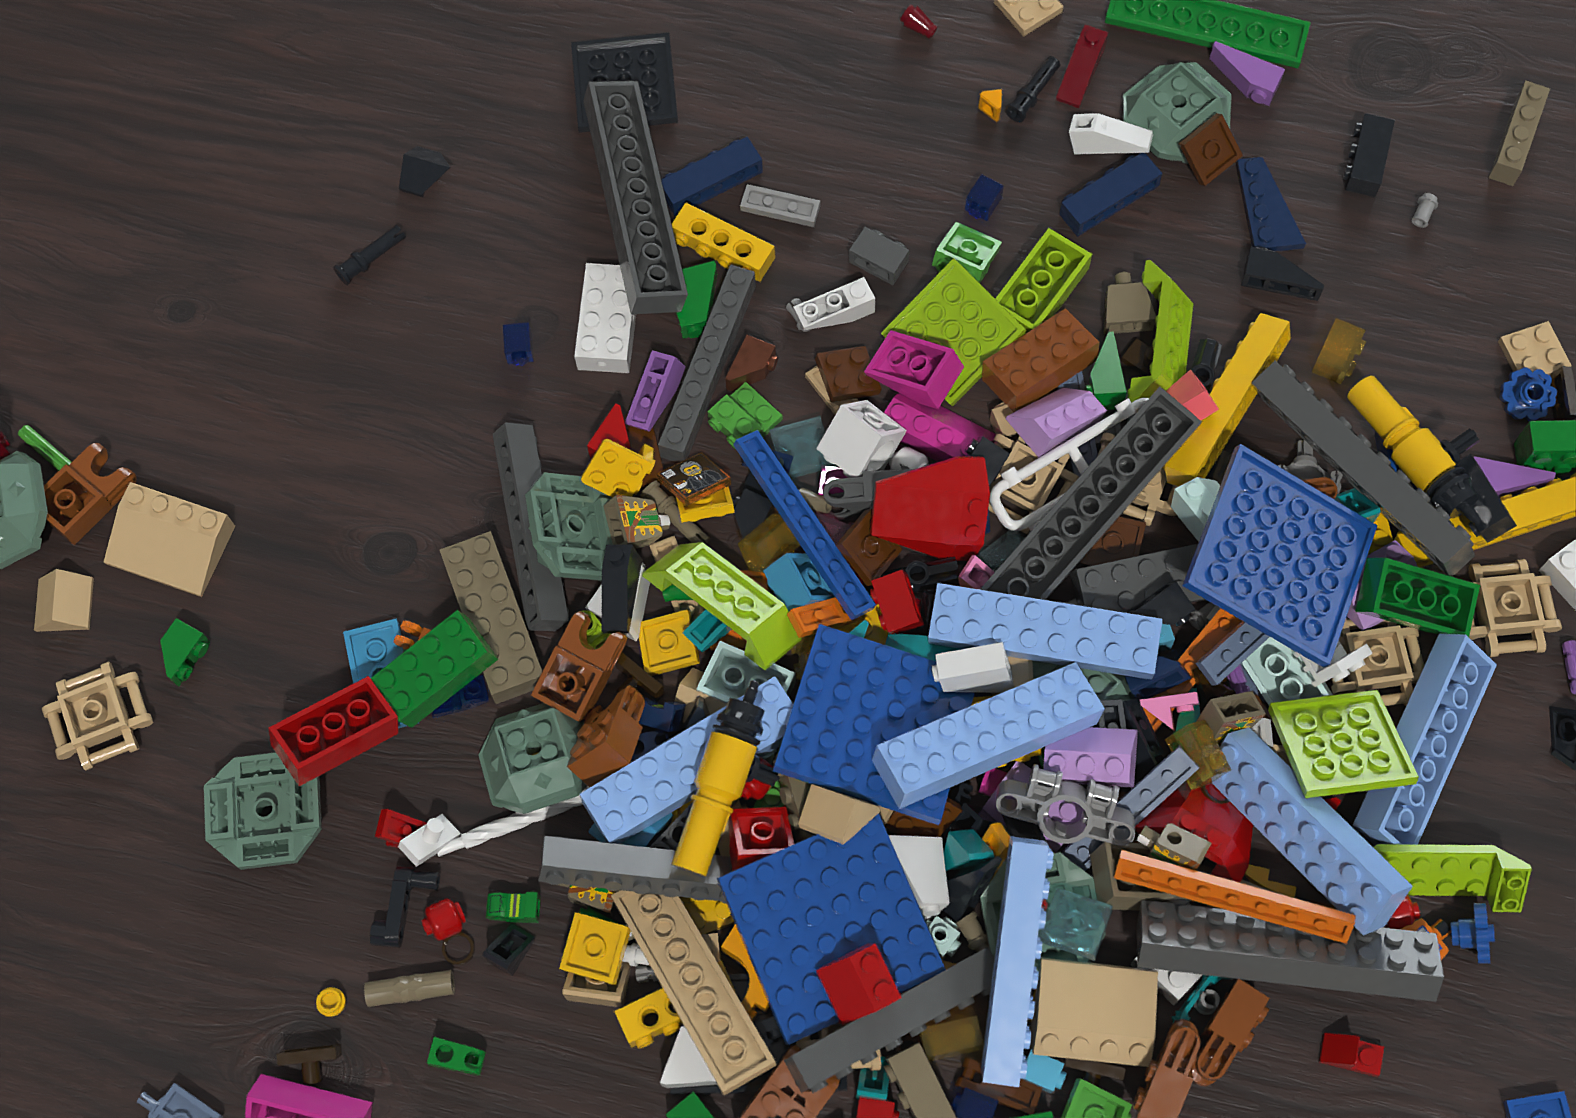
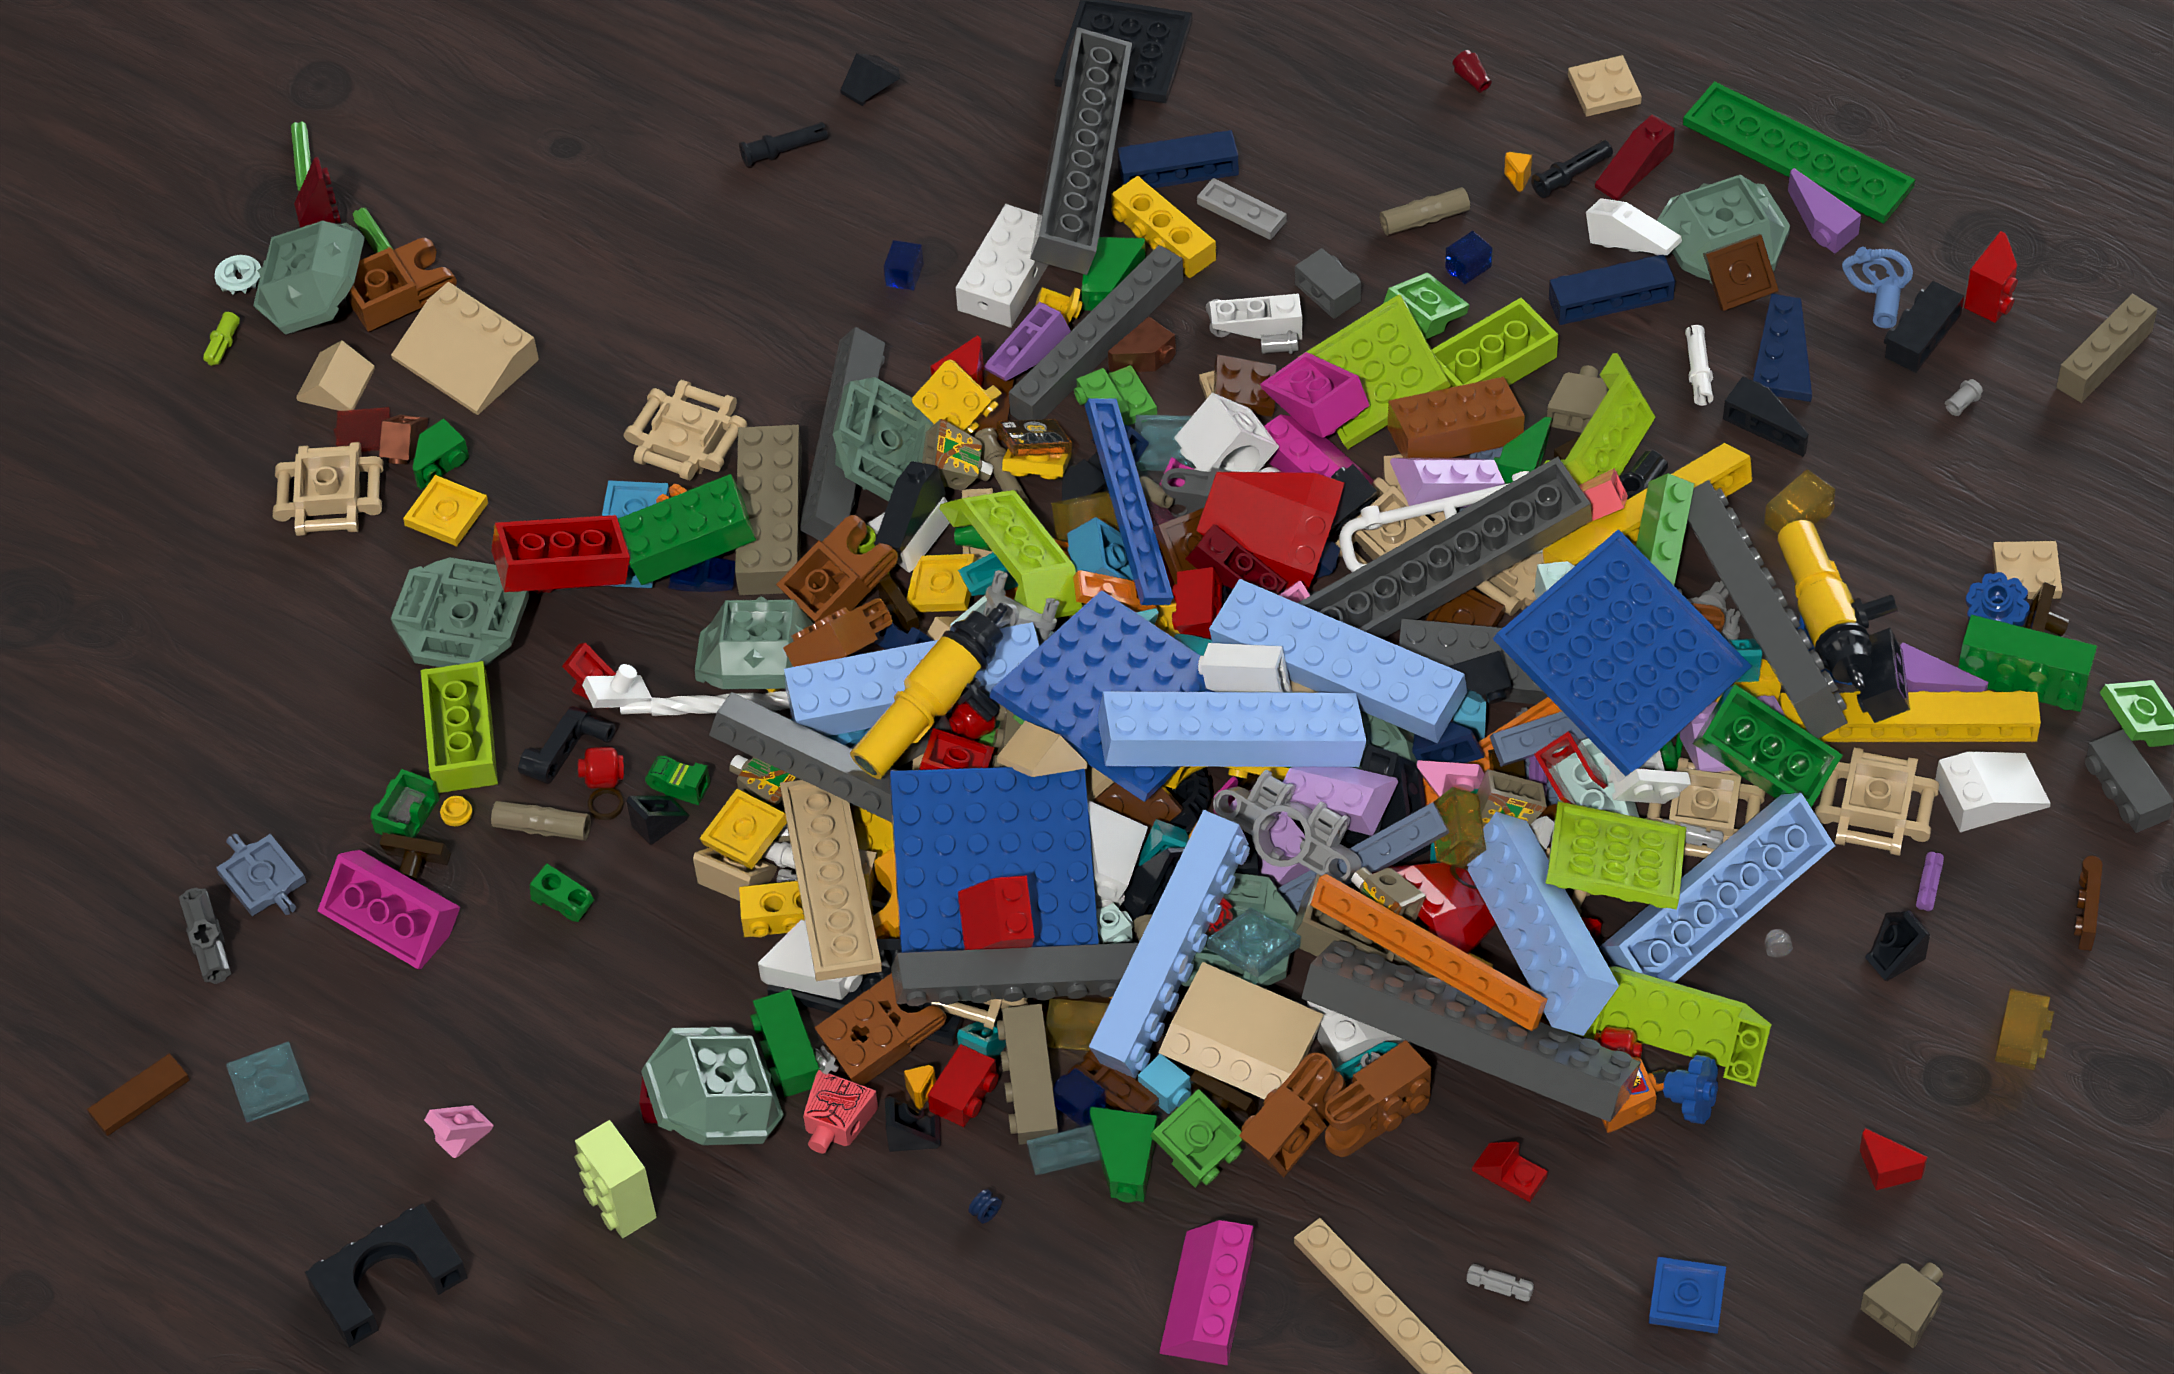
camera: 20 degrees right, 15 degrees down
(105, 643) = (361, 427): none -> clear red piece
(144, 644) = (401, 437): none -> copper slope
(210, 704) = (445, 510): none -> yellow plate
(283, 1015) = (405, 805): none -> green window
(303, 922) = (459, 727): none -> lime brick
(392, 563) = (684, 434): none -> tan brick
(664, 342) = (1068, 306): none -> yellow bracket
(751, 668) = (1018, 613): none -> light grey axle
(860, 323) = (1279, 343): none -> light grey pin
(915, 558) = (1232, 562): none -> dark red slope
(931, 164) = (1424, 211): none -> dark tan axle
(1210, 250) = (1700, 373): none -> white pin
(1256, 414) = (1665, 523): none -> bright green brick
(1257, 680) = (1548, 760): none -> red piece
(1327, 129) = (1887, 289): none -> medium blue piece
(1386, 690) = (1698, 835): none -> light grey axle
(1413, 98) = (1992, 281): none -> red slope
(1480, 765) = (1778, 943): none -> clear hinge

